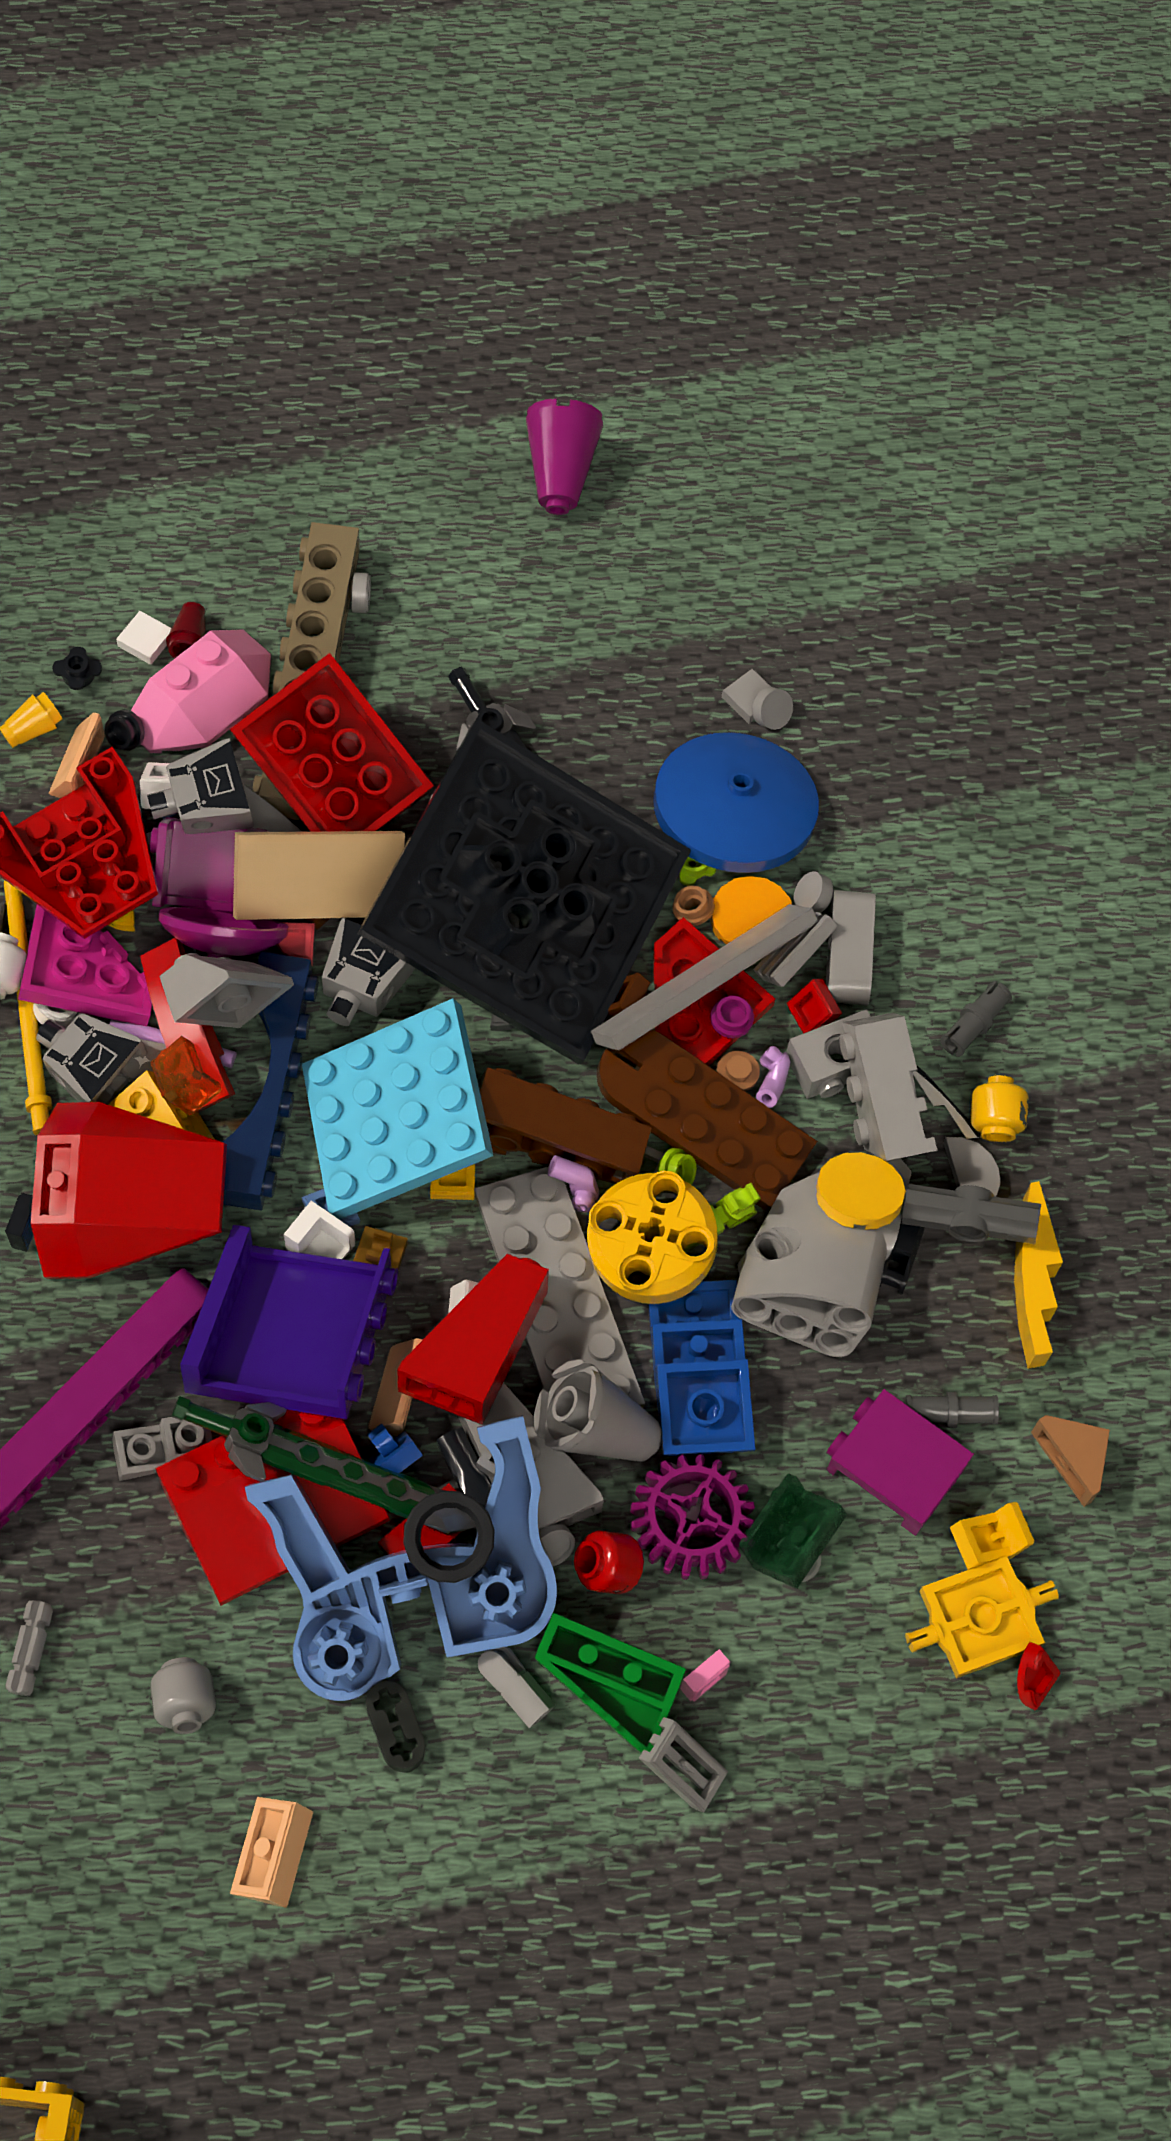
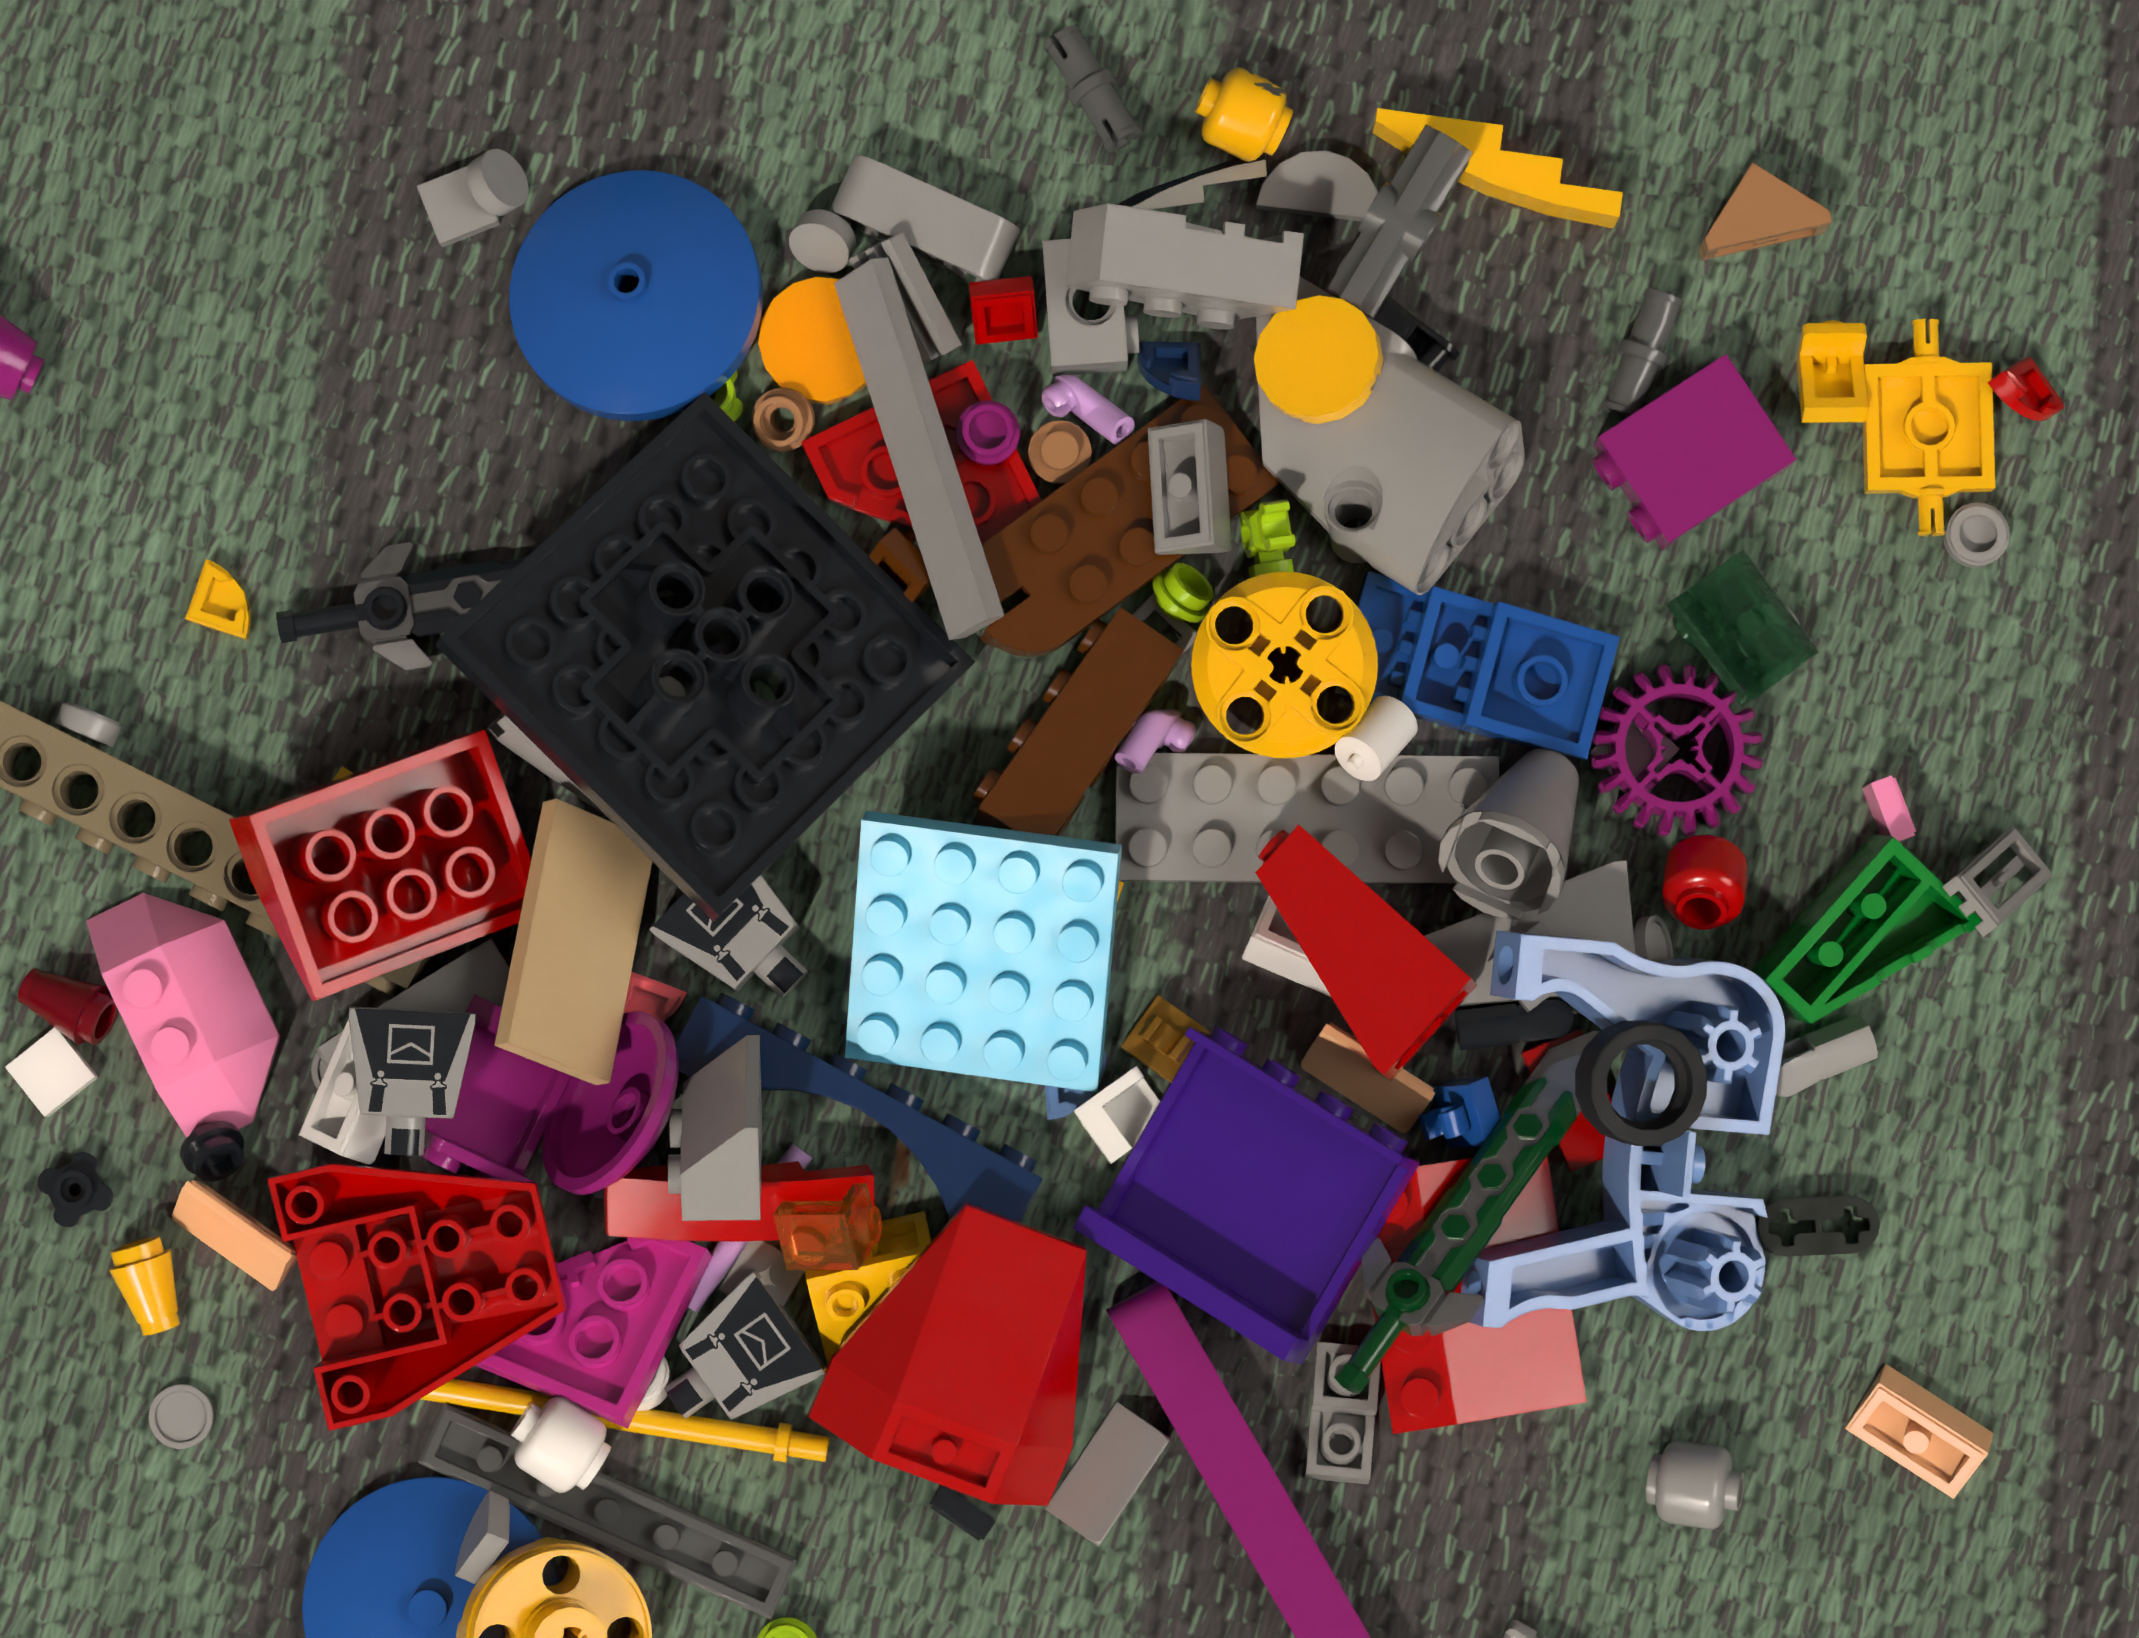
camera: 65 degrees left, 20 degrees up
(75, 1309) = (1107, 1474): none -> light grey slope
(461, 642) = (220, 603): none -> yellow tile
(626, 1313) = (1376, 739): none -> white piece
(745, 1146) = (1189, 488): none -> light grey slope
(820, 1121) = (1172, 367): none -> dark blue tile
(922, 1678) = (1976, 535): none -> light grey tile

